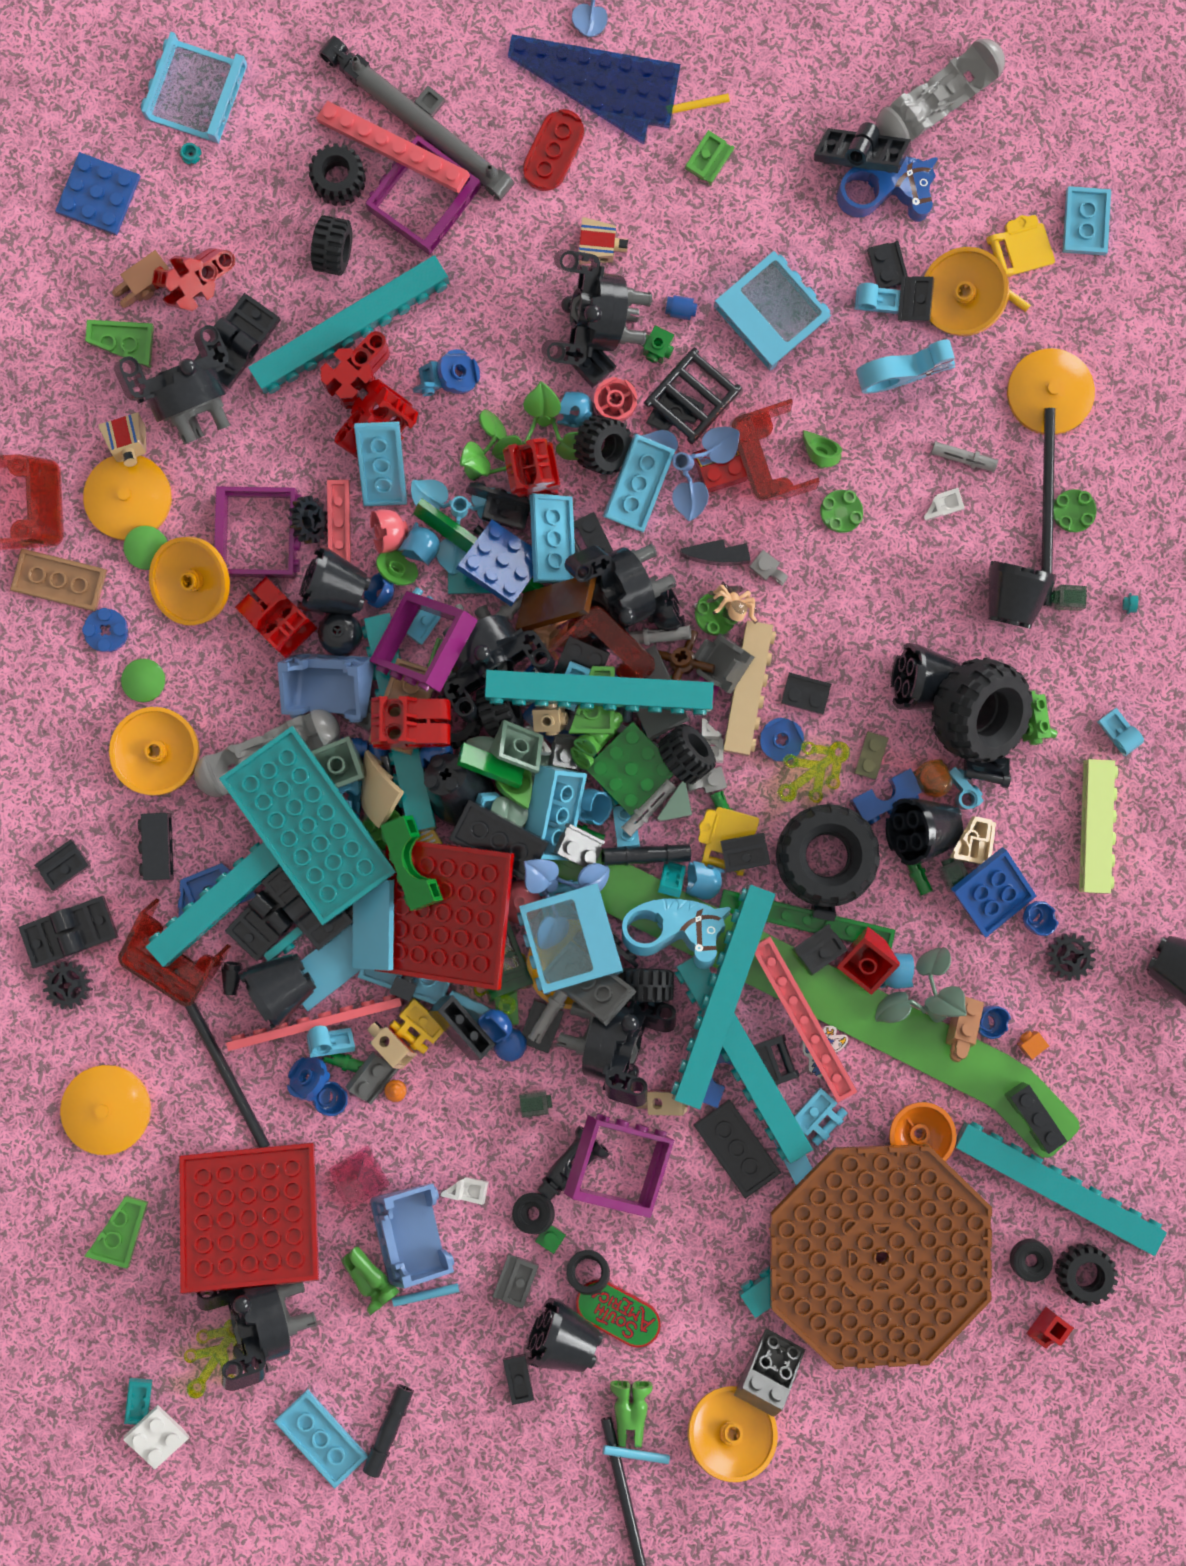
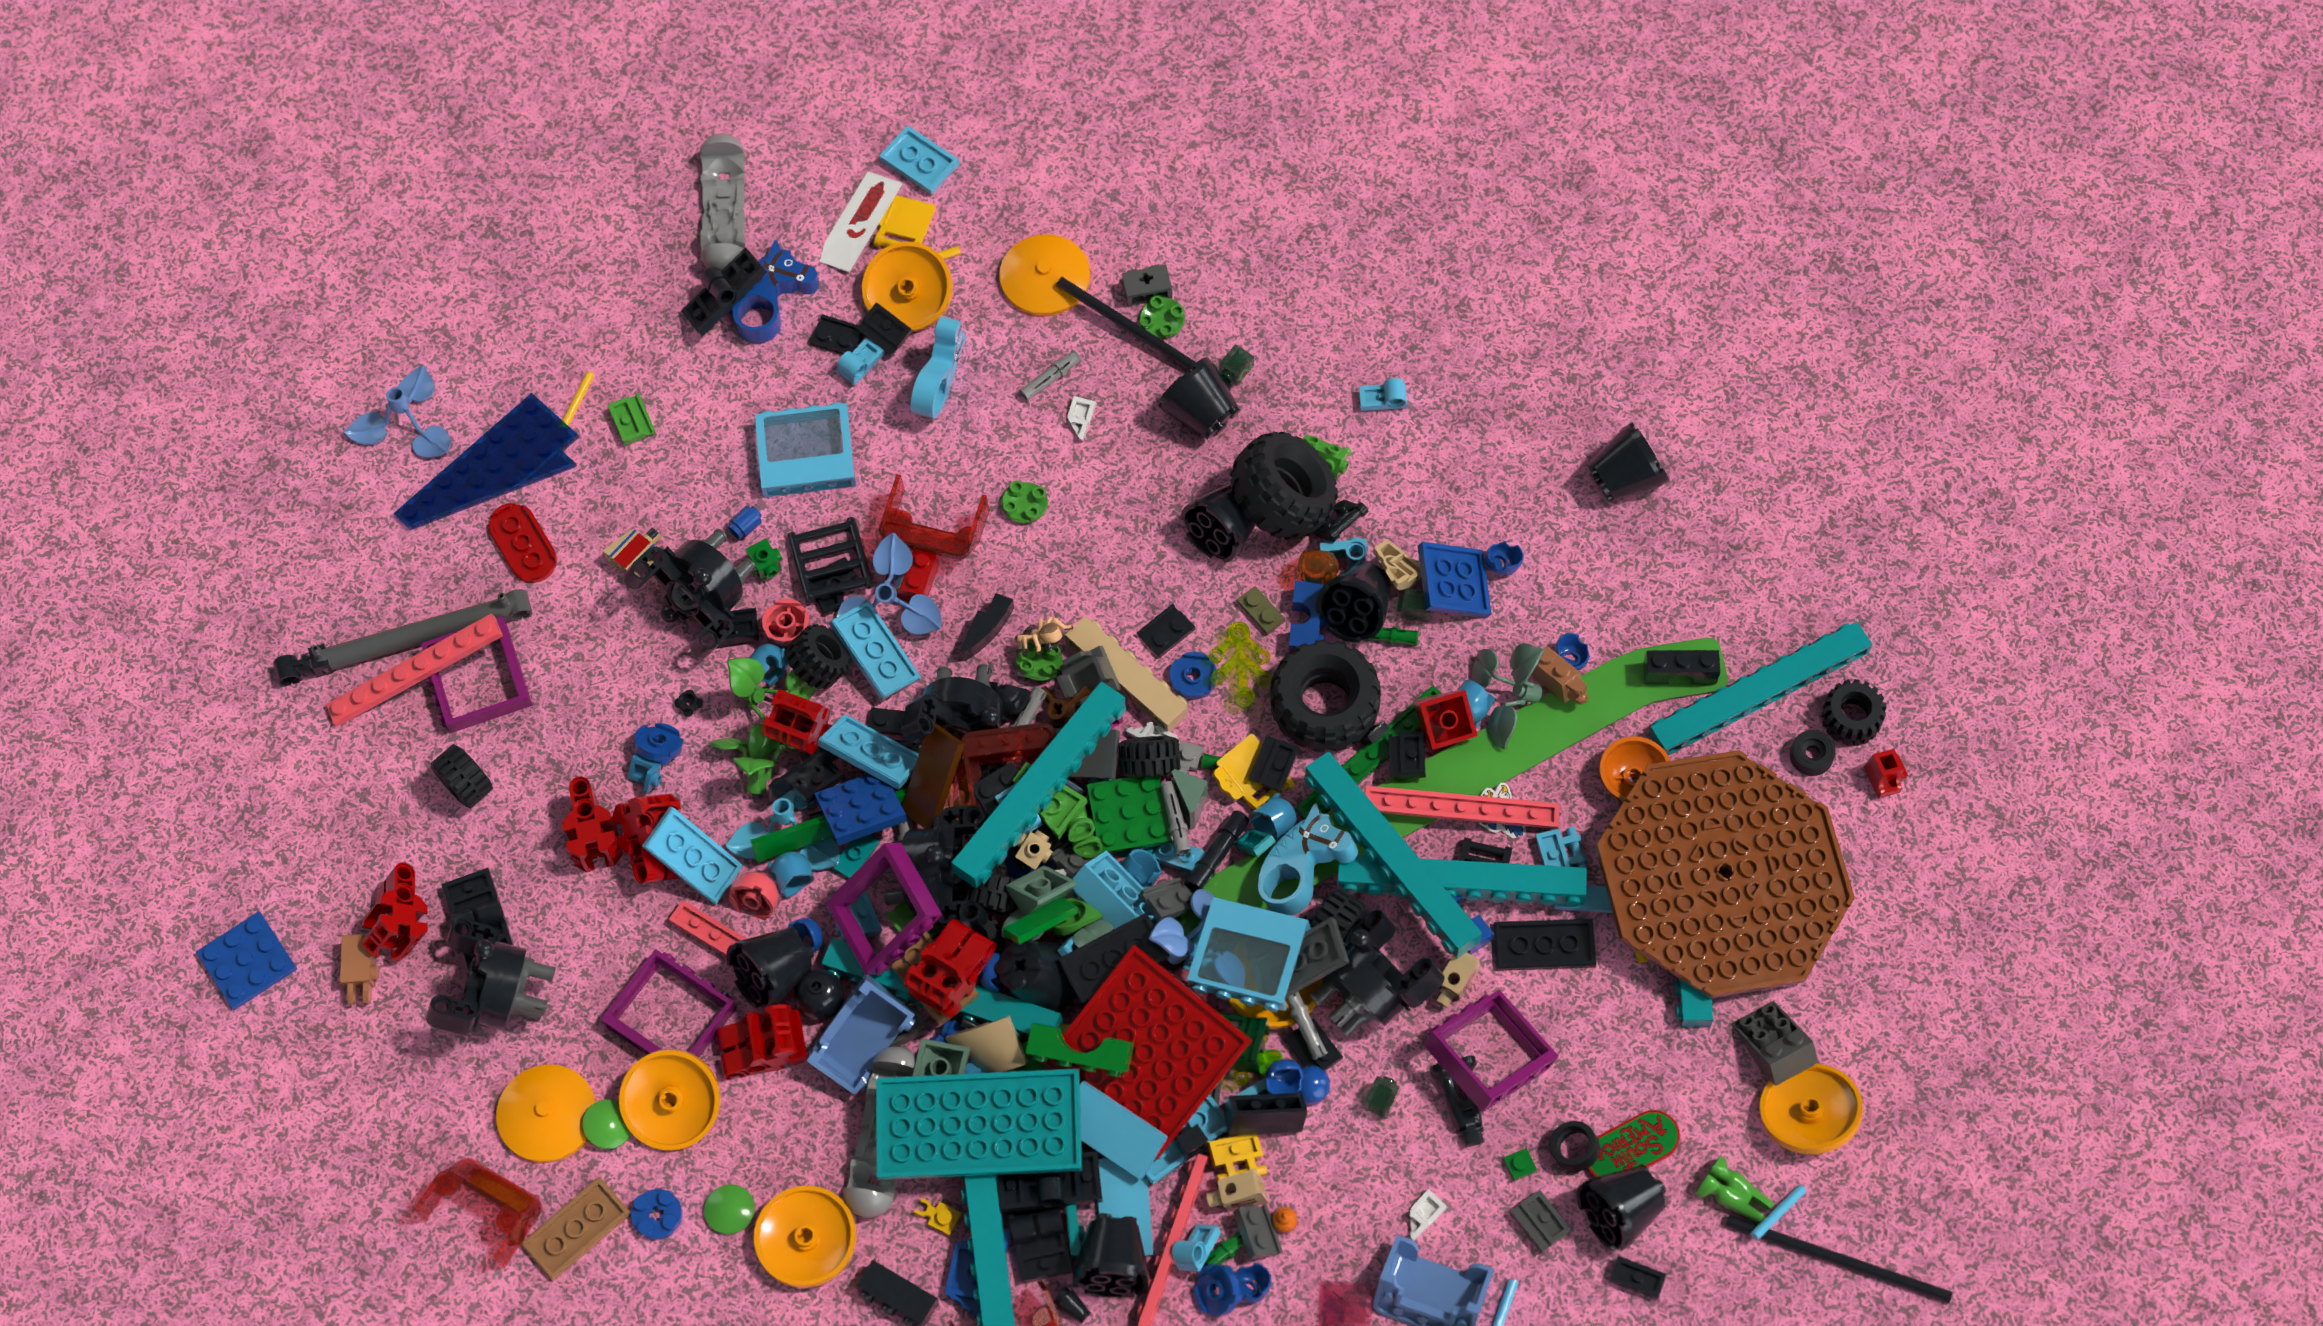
camera: 50 degrees left, 20 degrees down
(122, 338) = (395, 1024): bright green wing -> none
(125, 438) = (492, 1076): tan torso -> none
(188, 148) = (272, 849): teal plate -> none
(191, 89) = (222, 815): clear light blue panel -> none
(236, 839) = (941, 1218): none -> yellow plate
(308, 519) = (694, 955): black gear -> none
(343, 190) = (409, 749): black tyre -> none
(350, 324) = (542, 812): teal brick -> none
(396, 568) = (796, 908): bright green dish -> none
(430, 101) = (396, 616): dark grey plate -> none
(511, 366) = (685, 697): none -> black plate
(521, 1217) = (1498, 1169): black tyre -> none
(767, 566) = (1028, 594): light grey plate -> none
(822, 450) = (960, 484): bright green piece -> none
(1000, 211) = (859, 221): none -> white sticker
(1032, 1044) = (1614, 632): orange plate -> none
(1067, 948) = (1547, 547): black gear -> none
(1086, 471) = (1138, 292): none -> dark grey brick
(1097, 826) = (1454, 463): yellowish green brick -> none
(1130, 603) = (1276, 322): teal plate -> none

